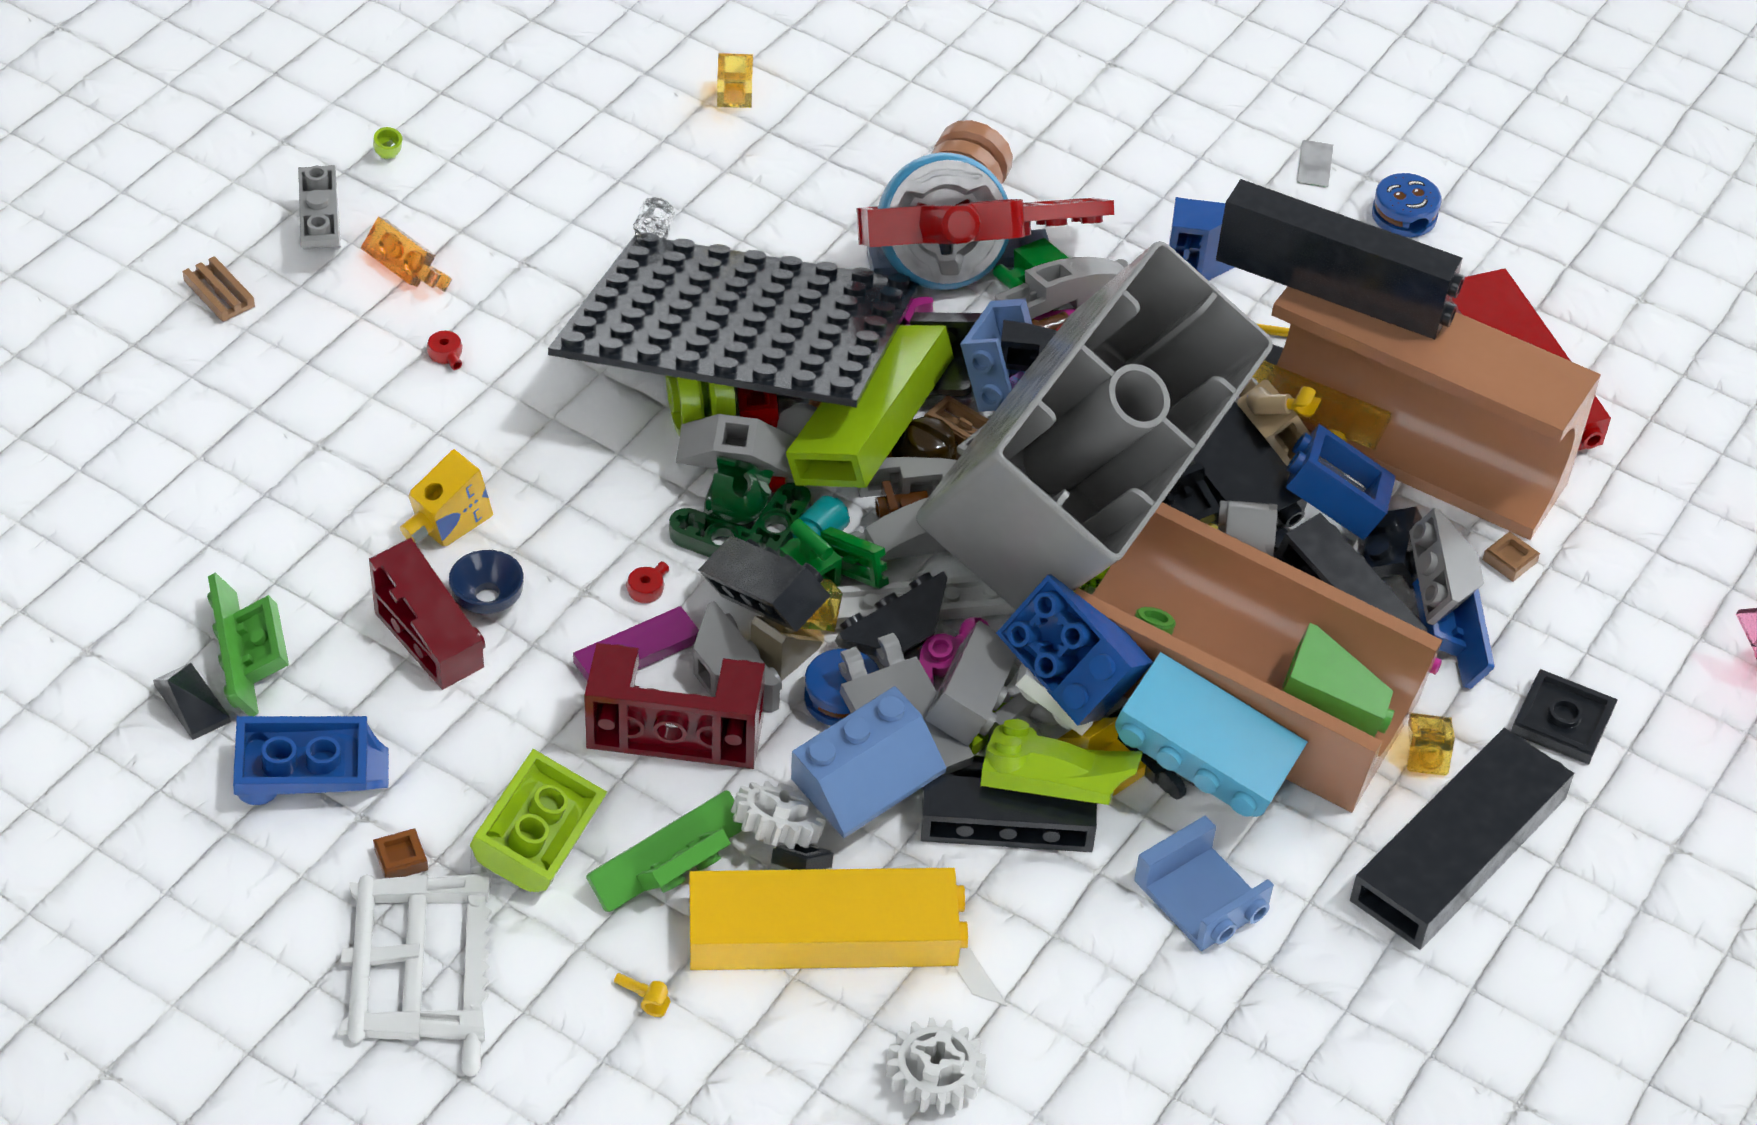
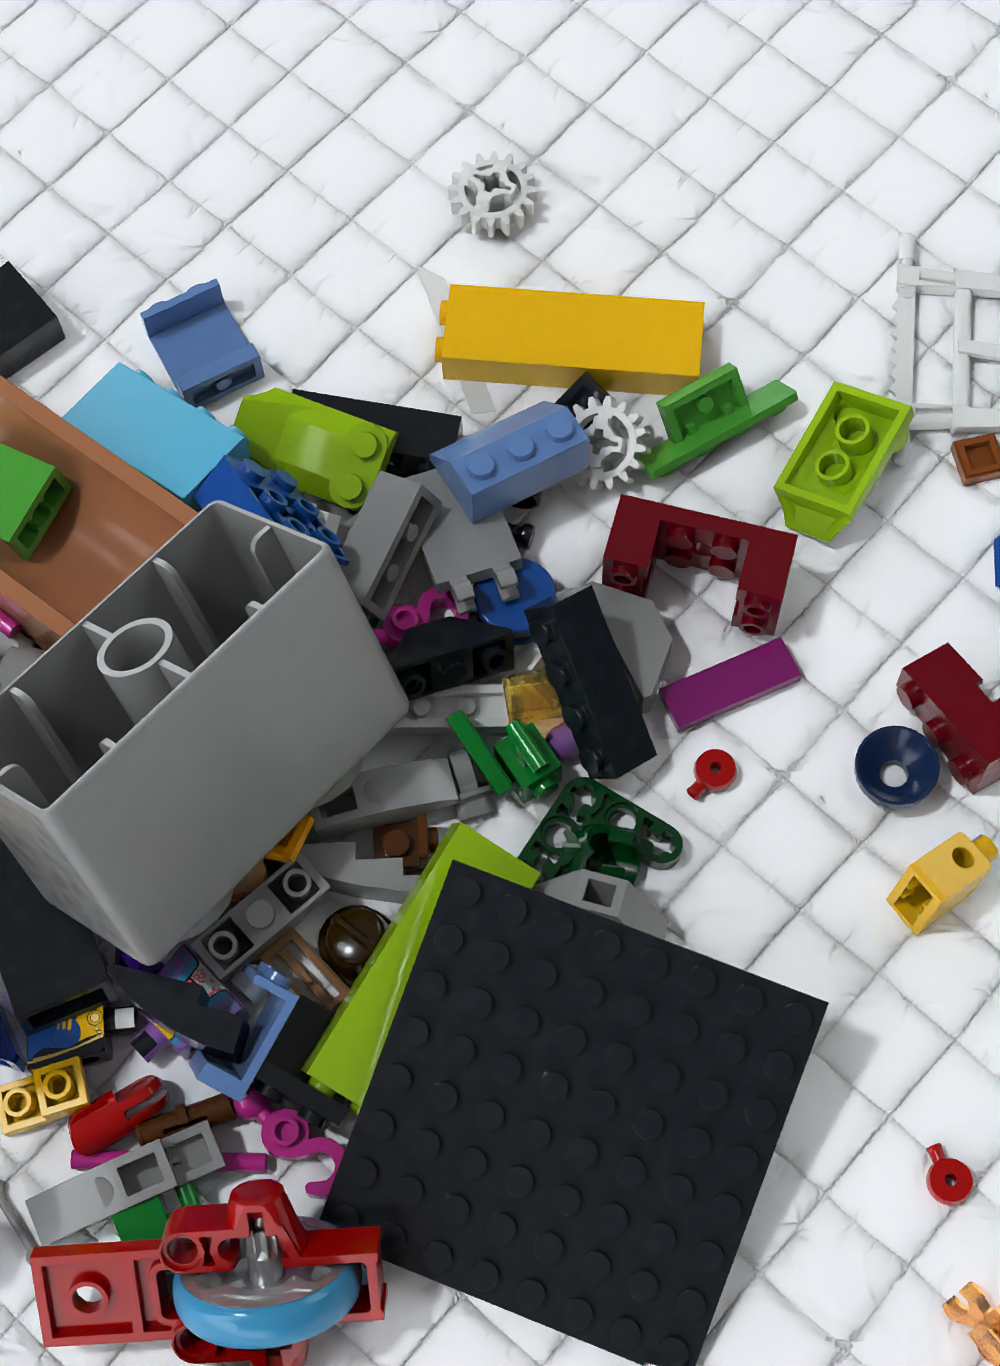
camera: 165 degrees left, 20 degrees up
(655, 994) = (737, 291): yellow hand -> none
(826, 513) = (508, 819): teal brick -> none

